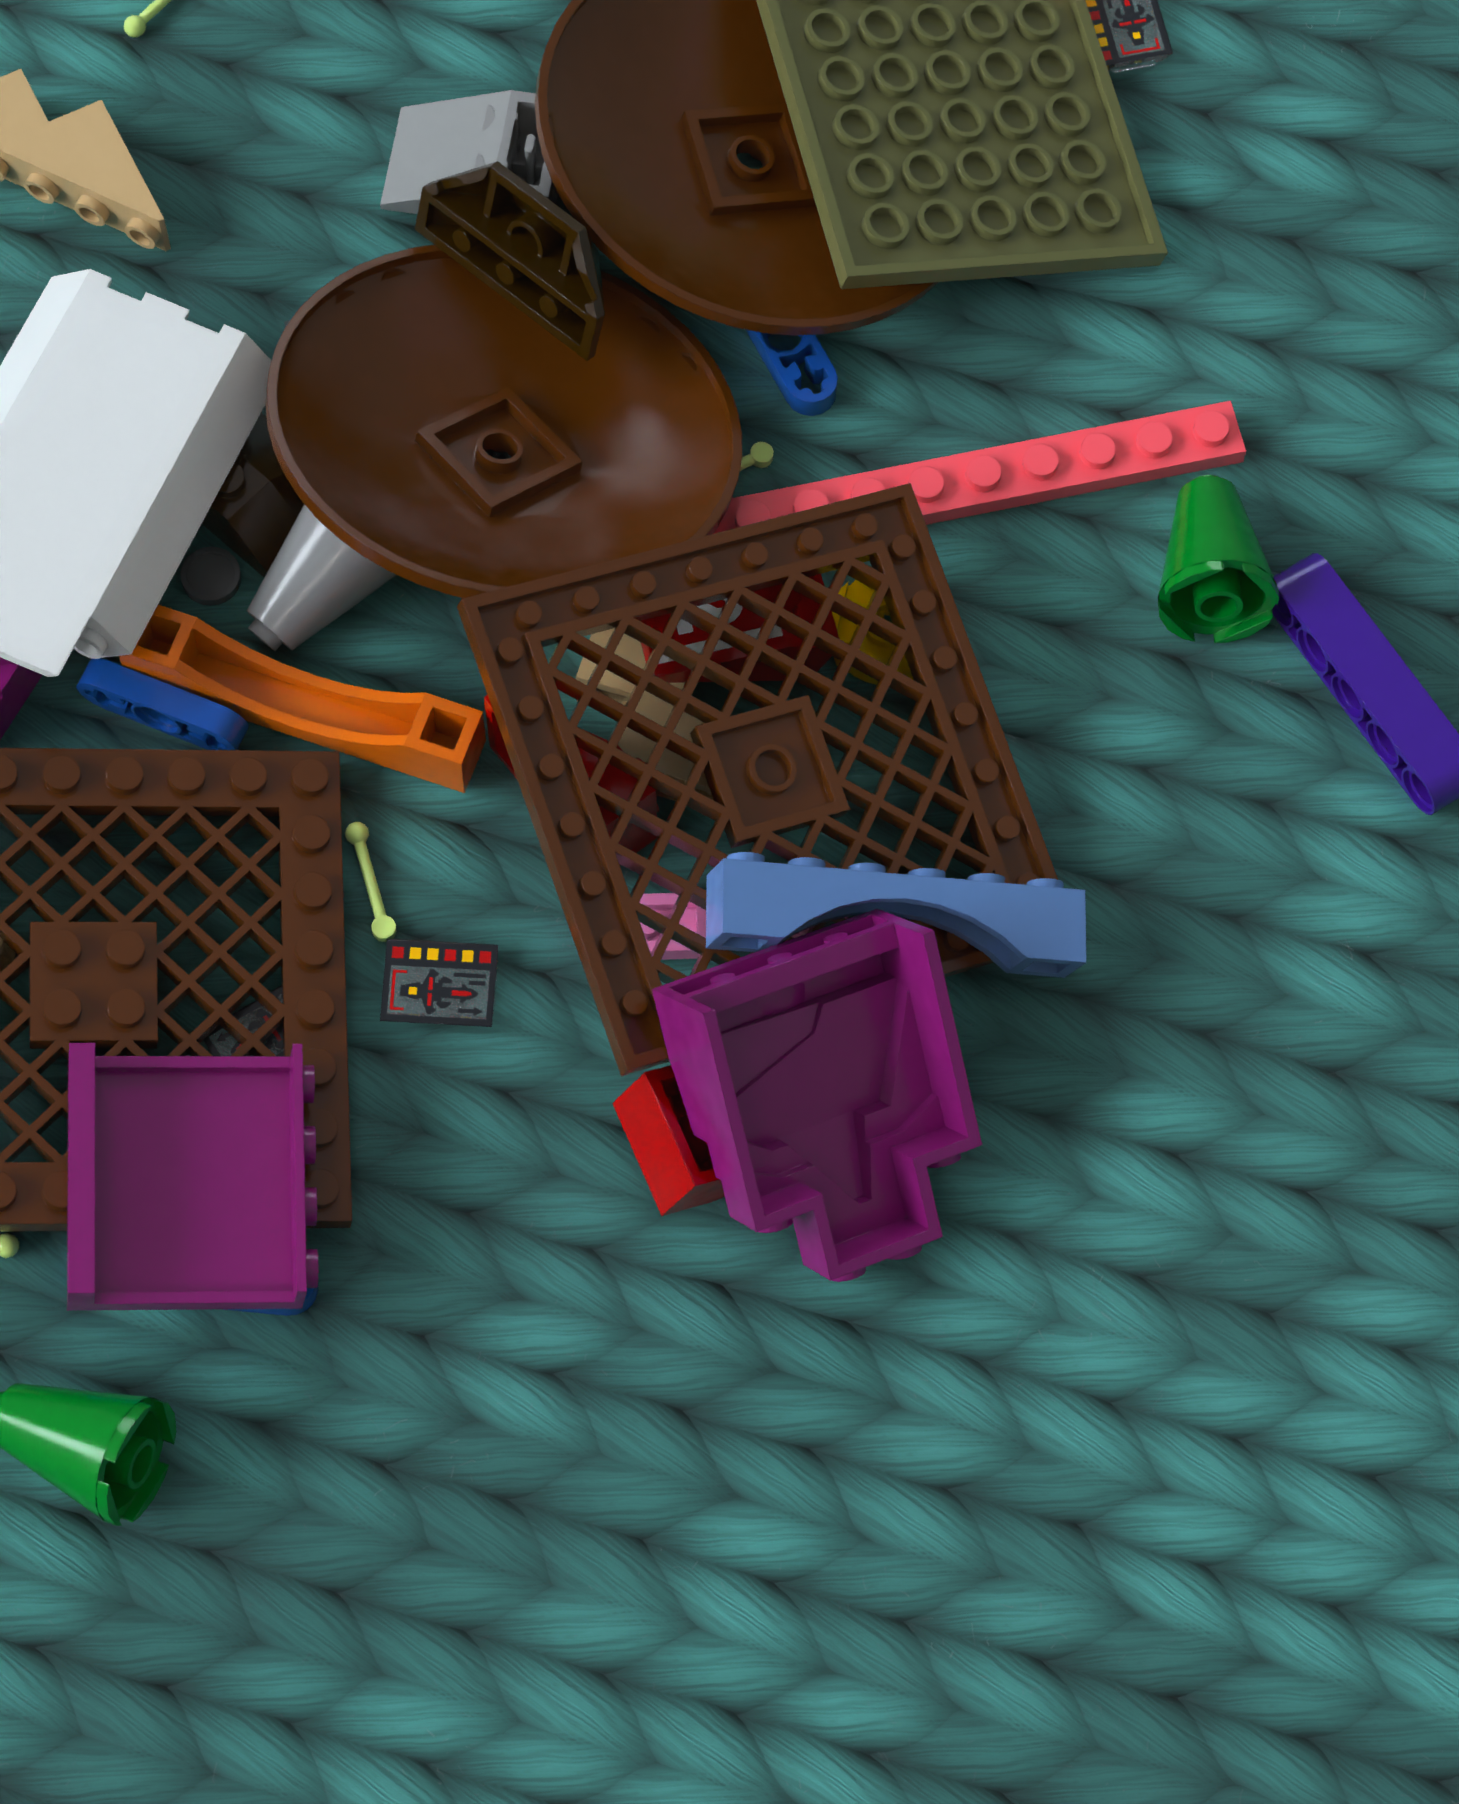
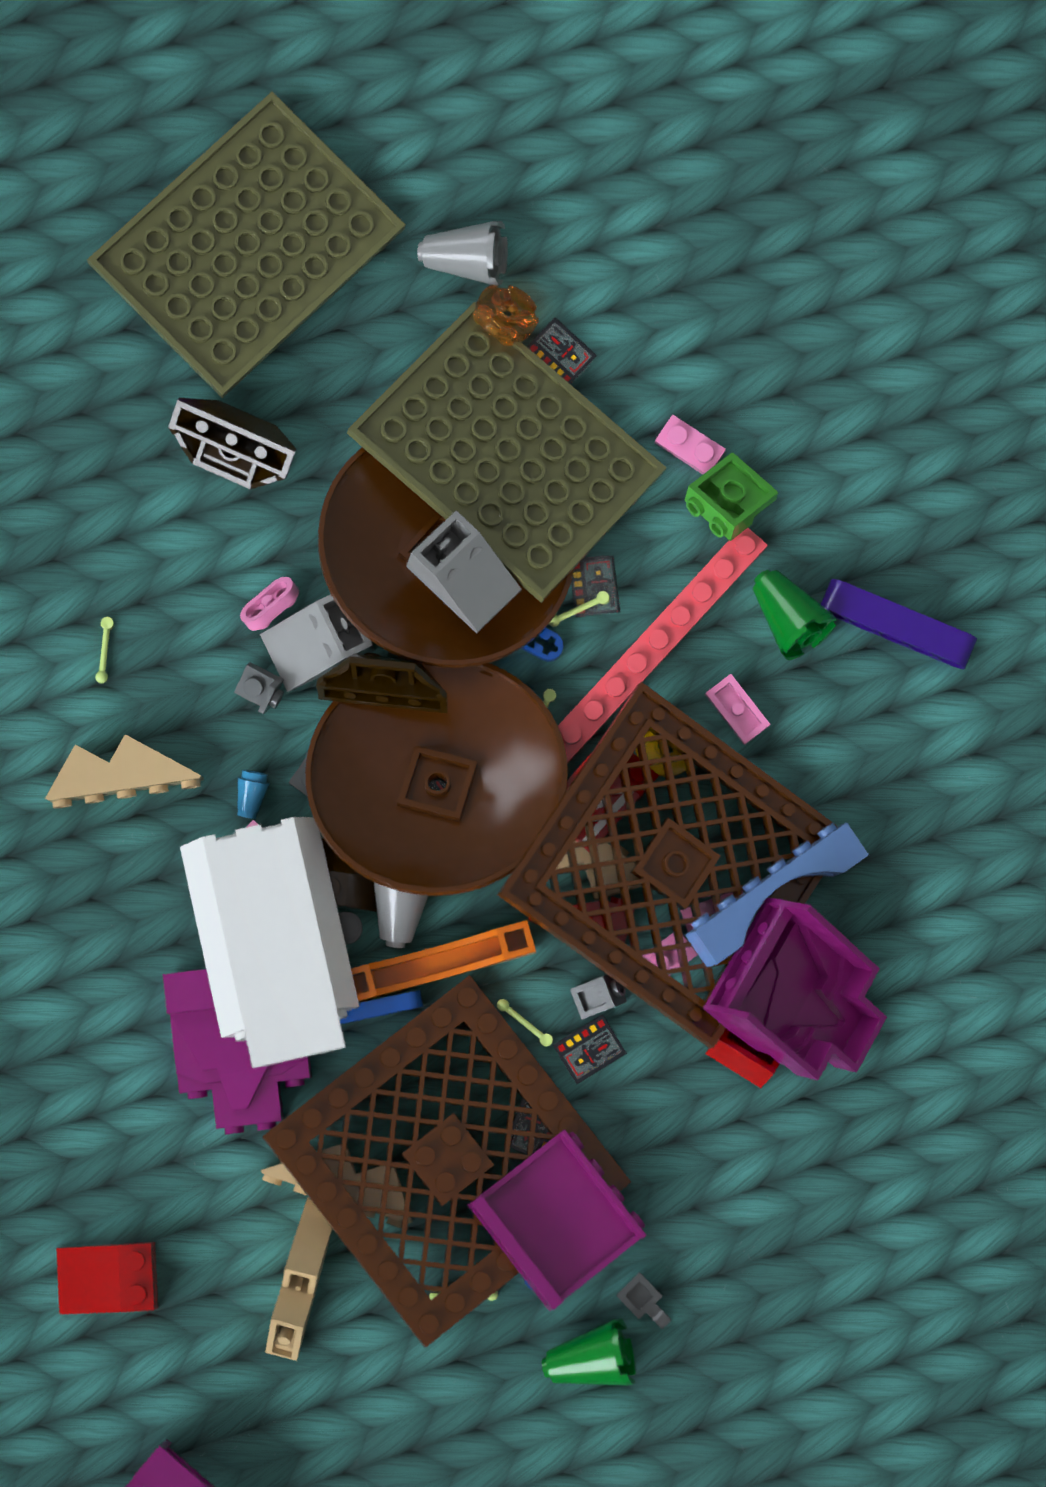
camera: 30 degrees left, 15 degrees up
(223, 296) = (251, 791): none -> dark azure cone
(231, 1410) = (641, 1298): none -> dark grey plate
(345, 172) = (260, 687): none -> dark grey bracket
(424, 77) = (269, 603): none -> bright pink plate
(513, 910) = (598, 996): none -> bracket
(754, 159) = (463, 572): none -> light grey slope
(940, 365) = (602, 598): none -> yellowish green hinge
(942, 352) = (592, 577): none -> clear piece
(1033, 646) = (737, 709): none -> bright pink plate
(1225, 253) = (689, 445): none -> bright pink plate
(1234, 345) = (729, 496): none -> bright green plate

